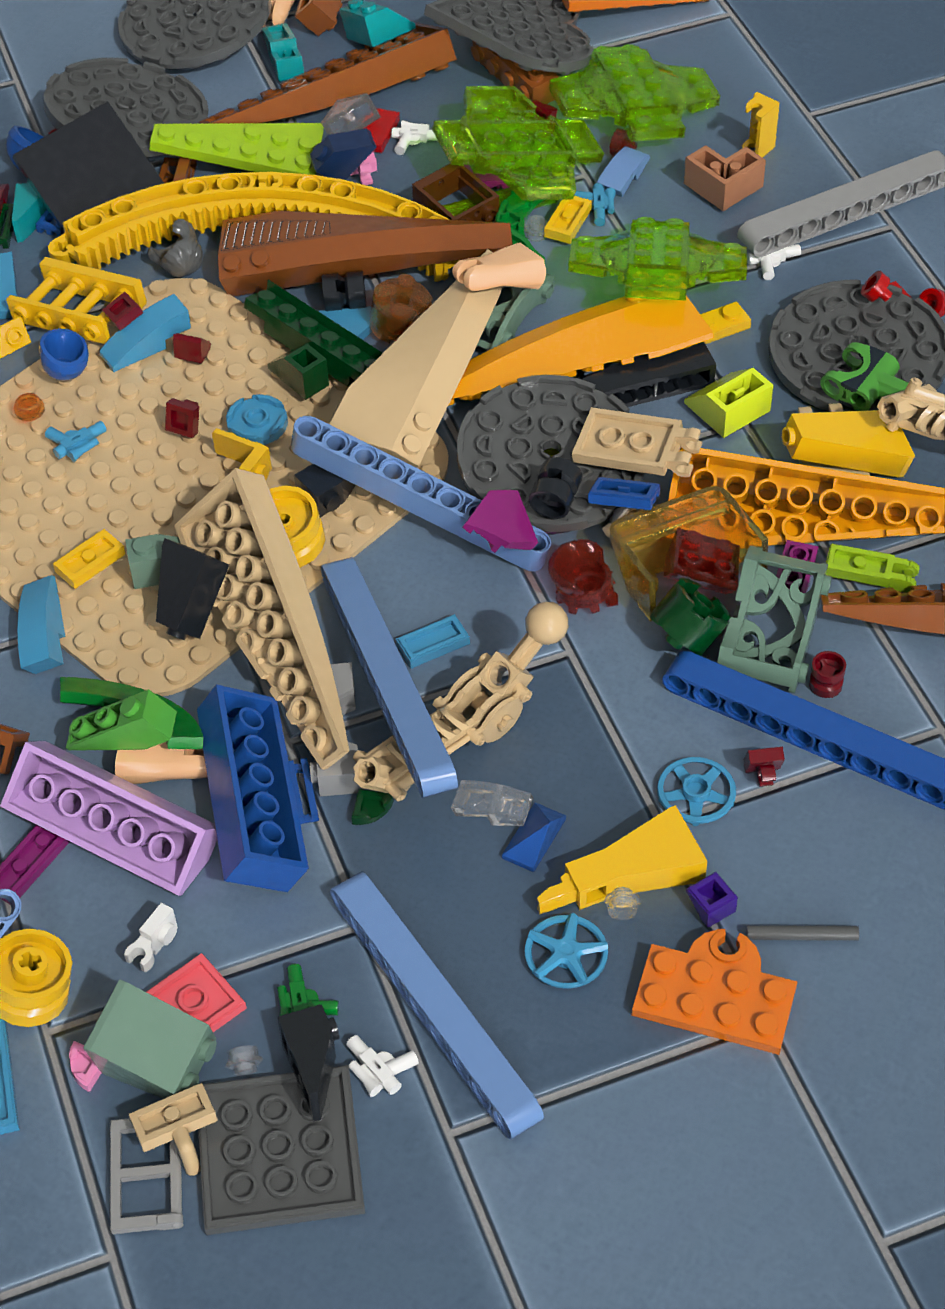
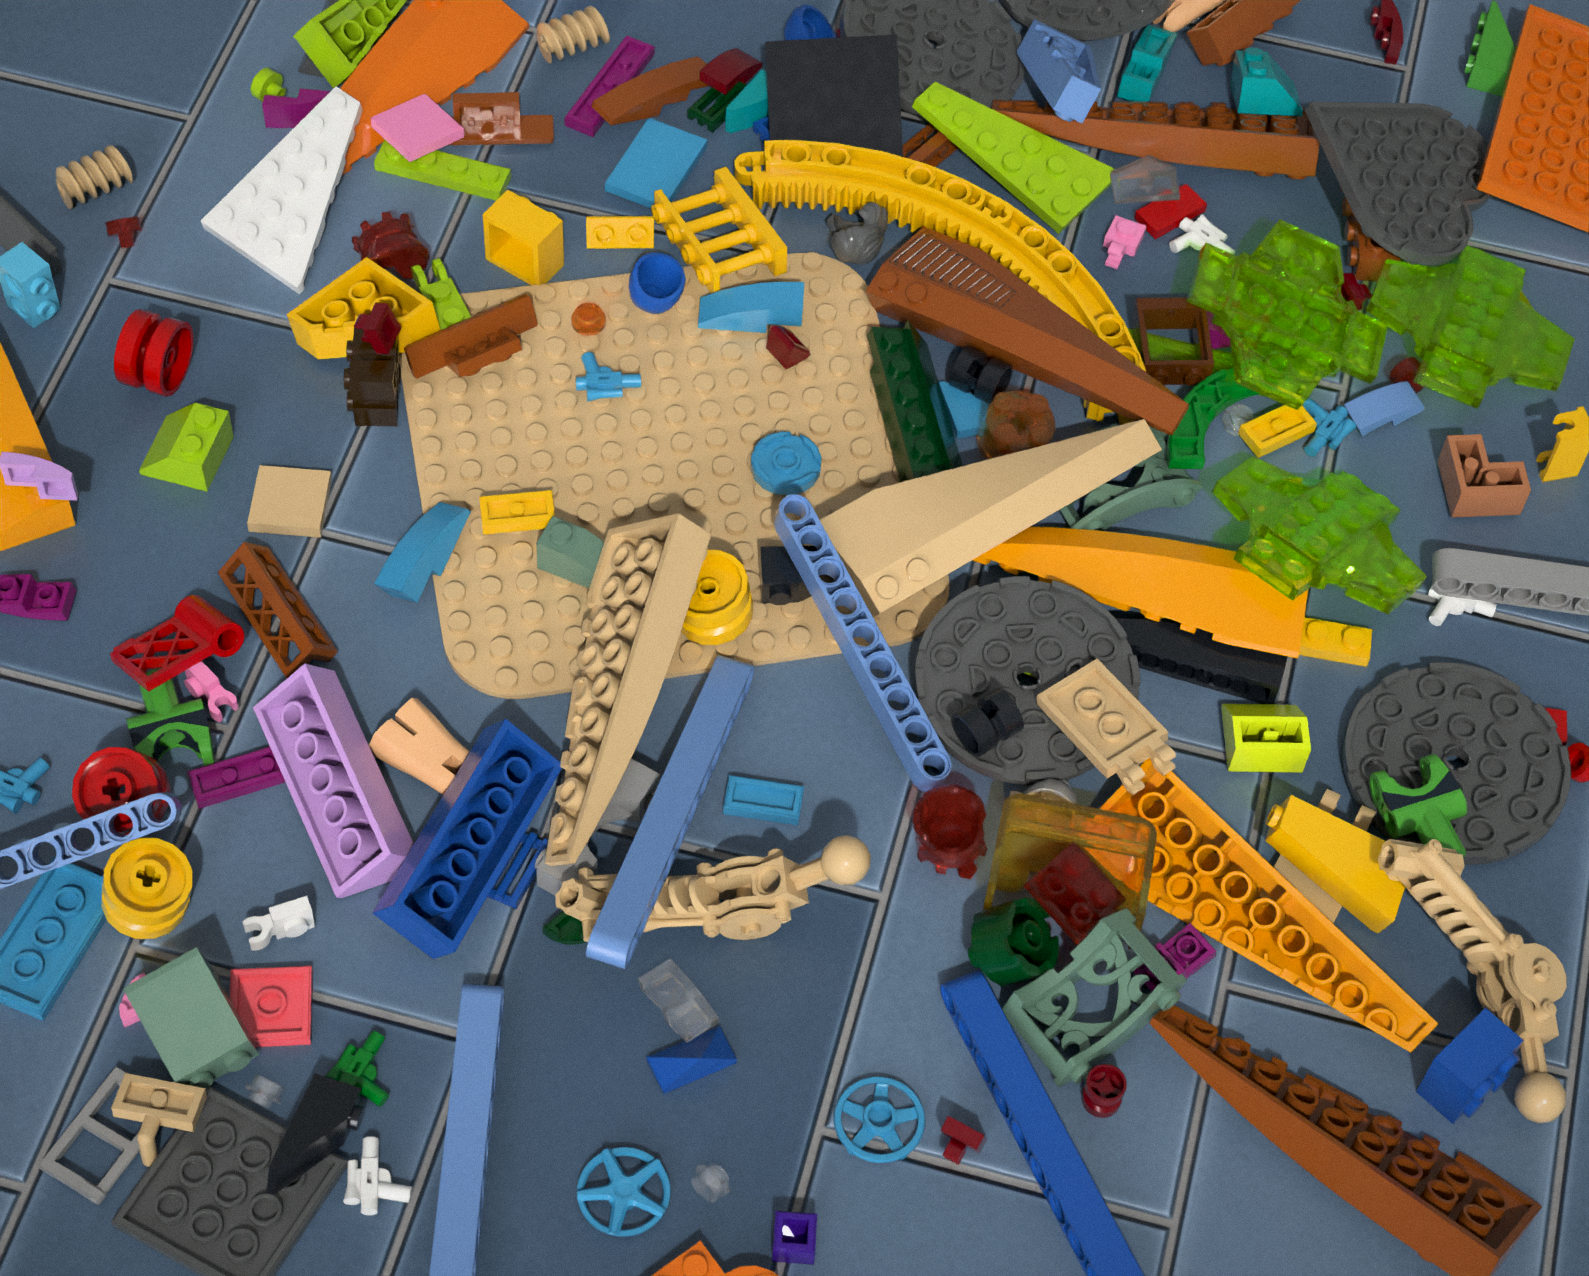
camera: 30 degrees right, 5 degrees up
(102, 693) = (450, 688): green tile -> none
(122, 311) = (742, 271): dark red tile -> none
(124, 725) = (403, 703): bright green slope -> none
(182, 417) = (715, 418): dark red tile -> none
(187, 589) = (568, 601): black slope -> none
(236, 76) = (1061, 70): none -> medium blue wedge
(252, 455) = (744, 511): yellow bracket -> none
(302, 370) = (864, 439): dark green slope -> none
(342, 153) = (1101, 220): dark blue slope -> none
(502, 521) = (910, 723): magenta slope -> none
(509, 267) = (1138, 453): light nougat piece -> none
(624, 493) = (1047, 773): blue tile -> none
(647, 859) = (766, 1154): yellow piece -> none
(871, 567) = (1249, 1007): lime hinge -> none
(876, 287) = (1523, 708): red tile -> none

